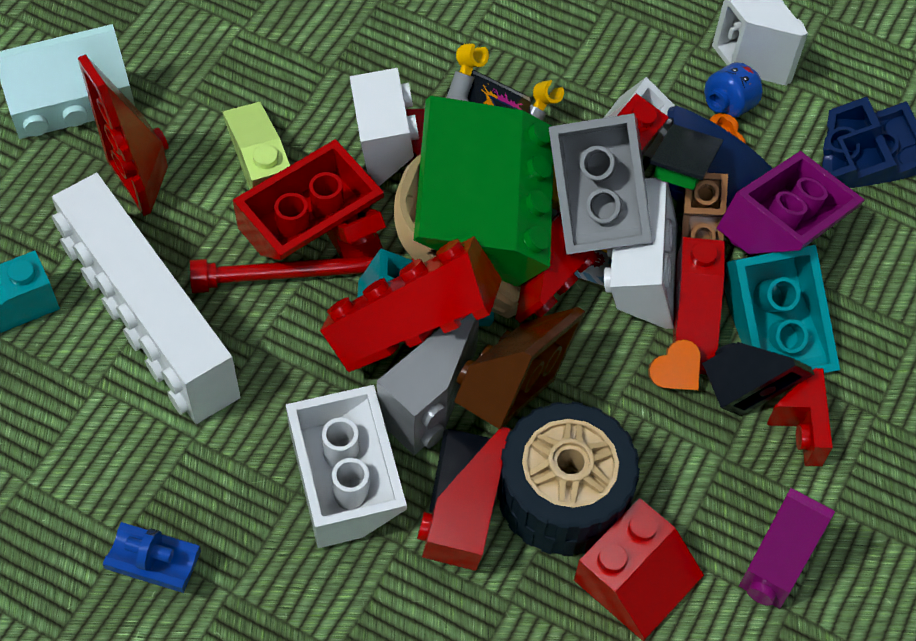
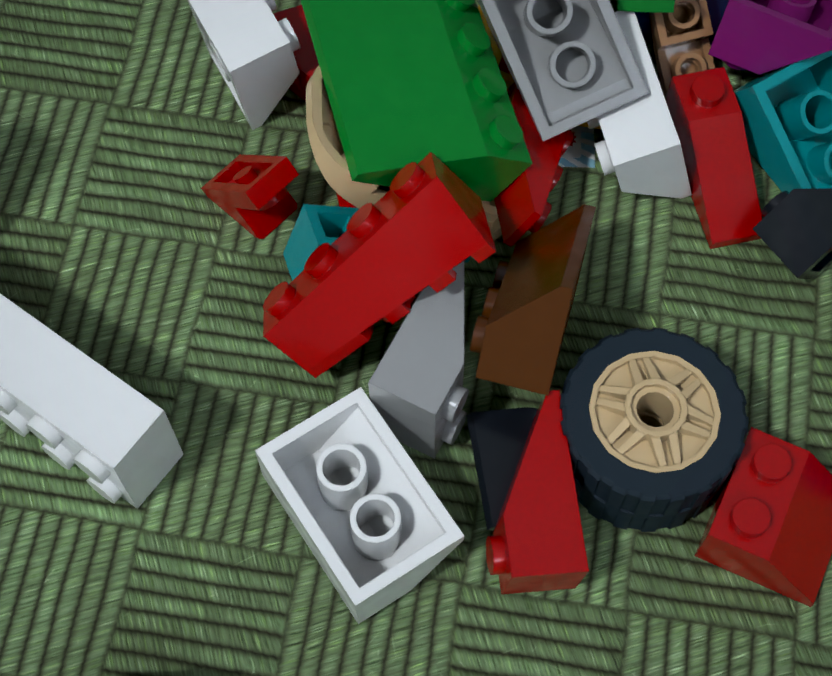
camera: 15 degrees left, 5 degrees up
(207, 275) = (84, 306): red piece -> none
(255, 143) = (97, 127): yellowish green slope -> none
(304, 201) = (180, 173): red slope -> none
(678, 367) = (720, 243): orange tile -> none

